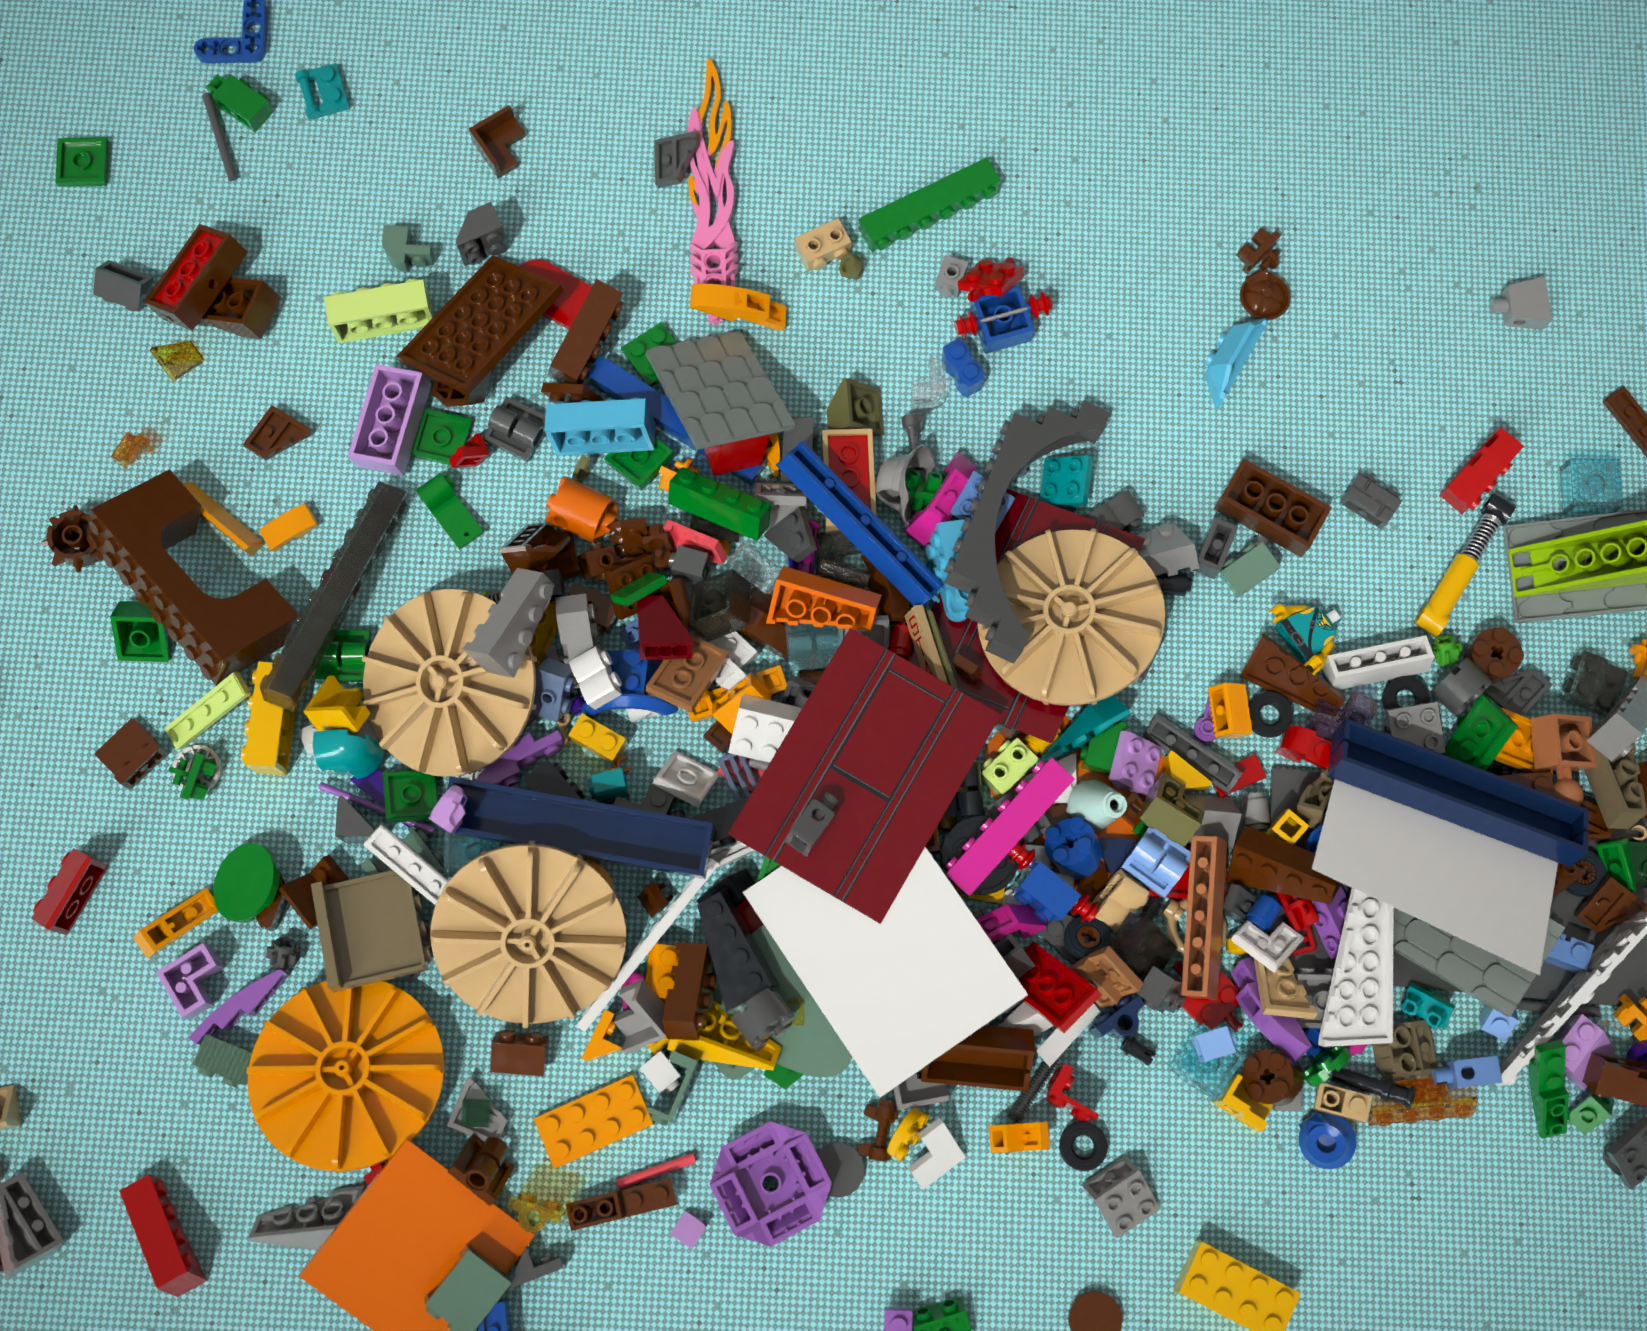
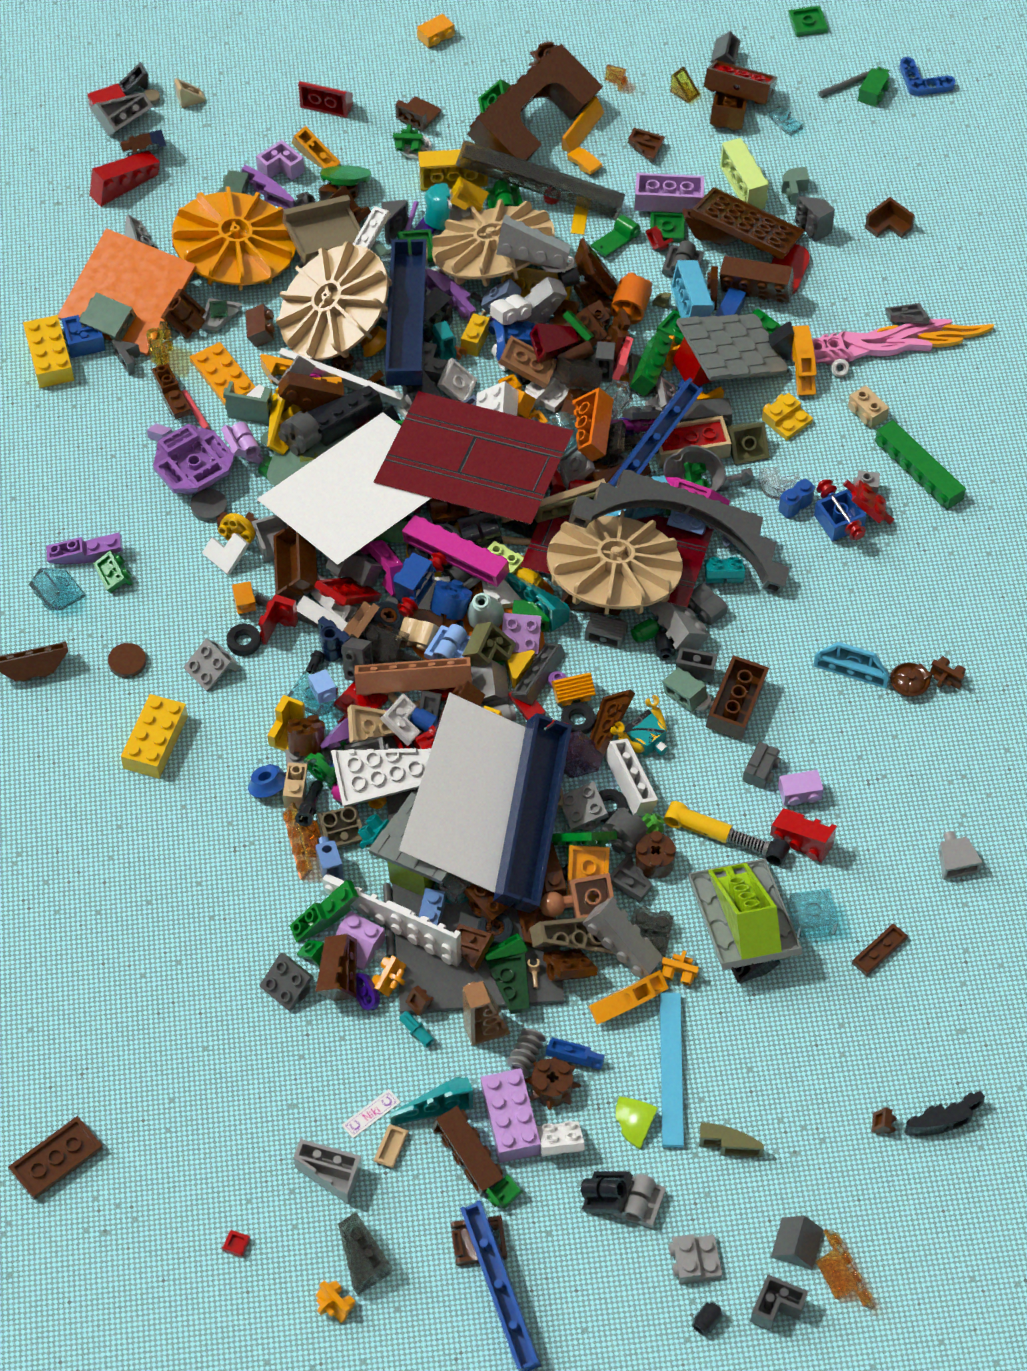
camera: 85 degrees right, 20 degrees down
(98, 1197) = (142, 141): none -> reddish brown hips
(207, 710) = (450, 136): yellowish green tile -> none
(274, 237) = (784, 120): none -> clear light blue slope
(330, 89) = (898, 131): teal plate -> none
(403, 558) = (579, 220): none -> yellow sticker
(450, 809) = (402, 237): lavender rock -> none
(700, 323) = (782, 340): none -> black slope
(748, 265) = (844, 371): none -> white plate
(748, 1107) = (242, 442): none -> lavender plate
(808, 831) = (430, 424): dark grey torso -> none
(817, 351) = (786, 416): none -> yellow plate
(851, 267) = (858, 424): olive tile -> none
(966, 668) = (565, 514): reddish brown tile -> none
(1413, 461) = (800, 788): none -> lavender brick
(1497, 1023) = (373, 879): light blue brick -> none

